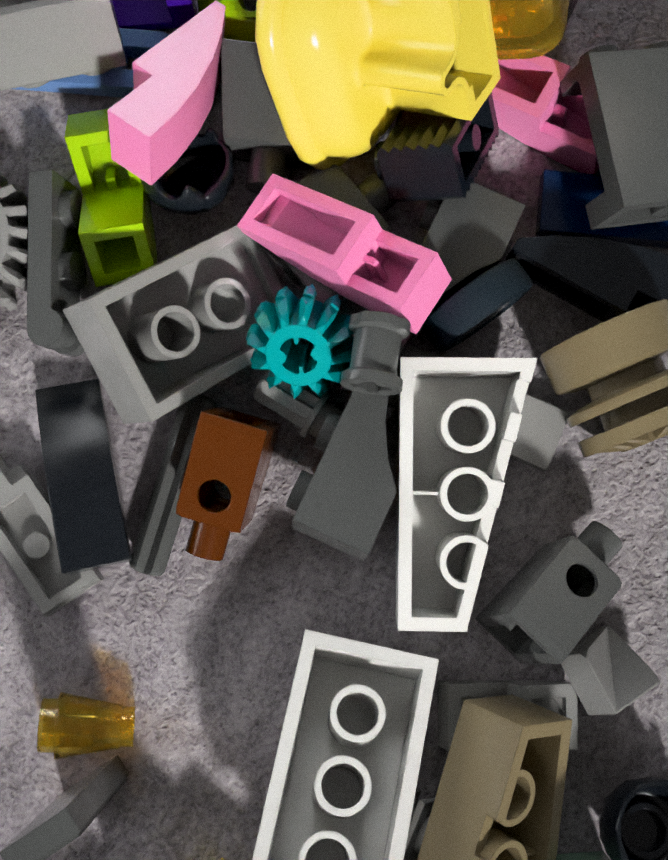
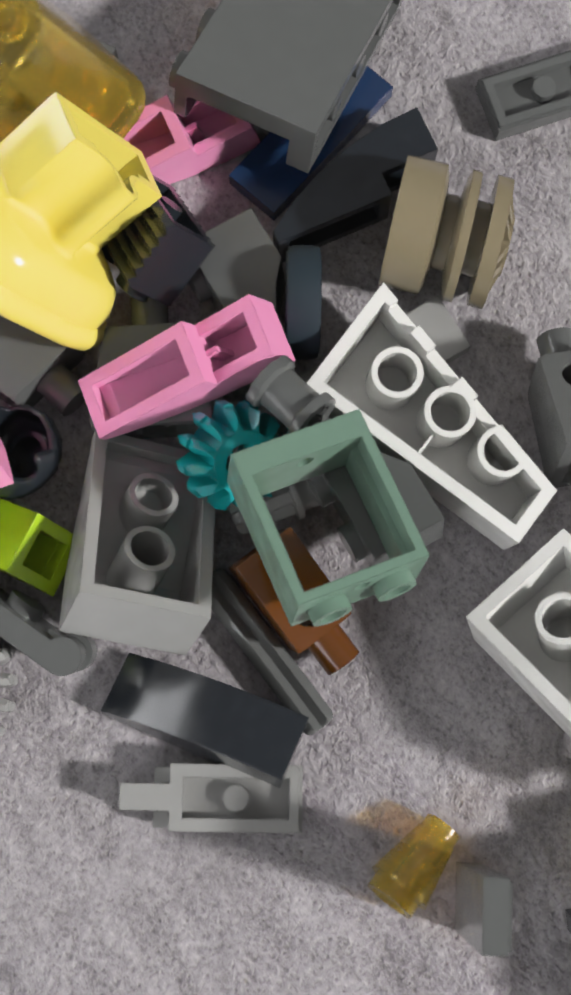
camera: 55 degrees left, 5 degrees down
(332, 400) = (302, 456): none -> sand green window

